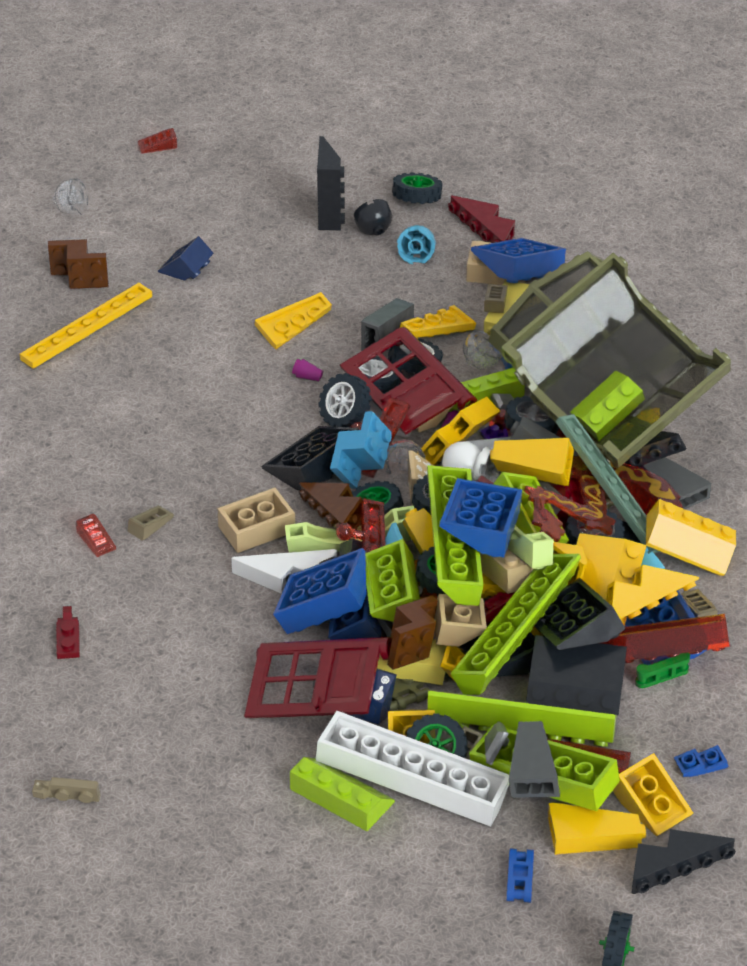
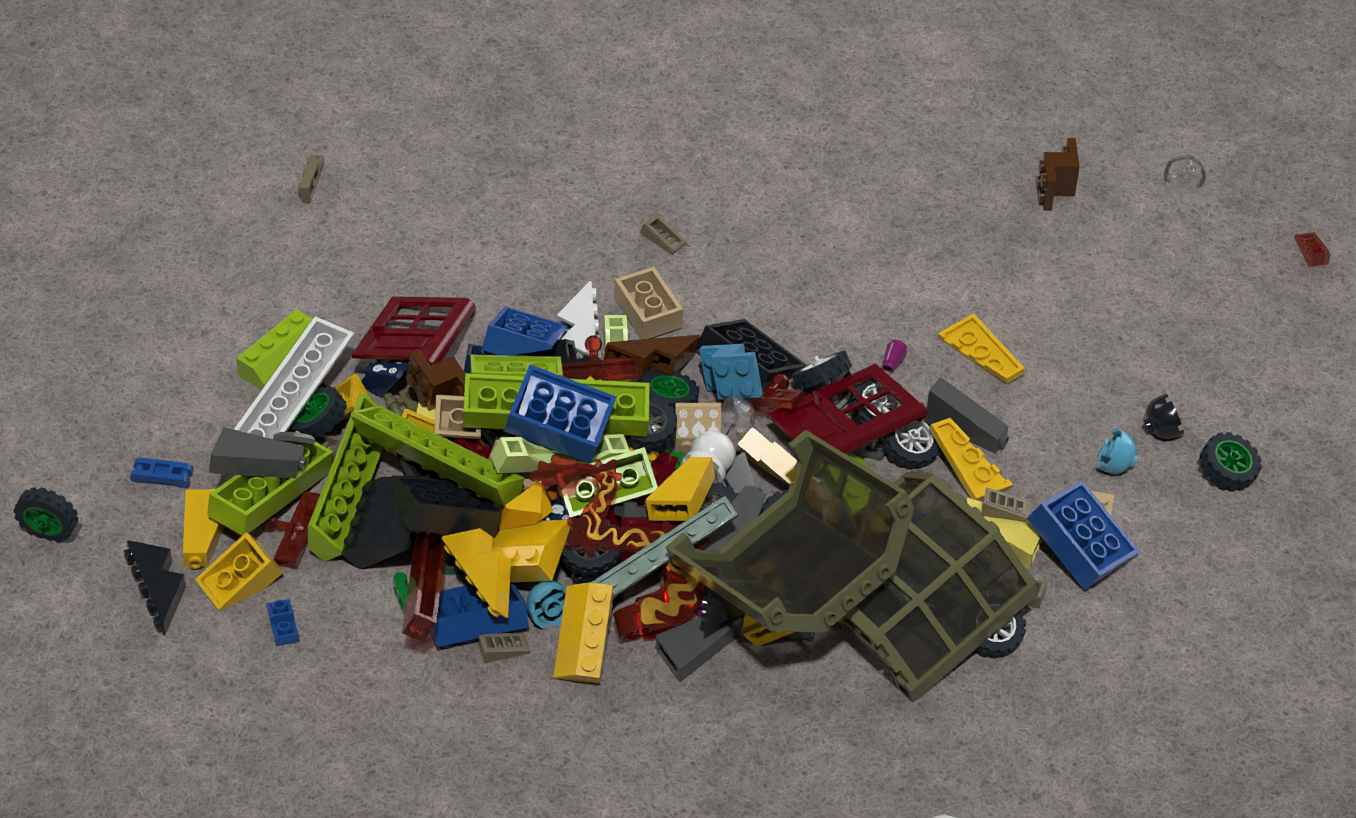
camera: 90 degrees right, 5 degrees up
(68, 635) = (511, 179): dark red hinge -> none
(85, 325) = (970, 190): yellow plate -> none
(92, 524) = (653, 188): clear red slope -> none
(187, 260) = (1080, 265): dark blue slope -> none
(330, 188) = (1194, 359): black slope -> none
(483, 219) = (1174, 519): dark red slope -> none
(608, 404) = (763, 554): lime slope -> none

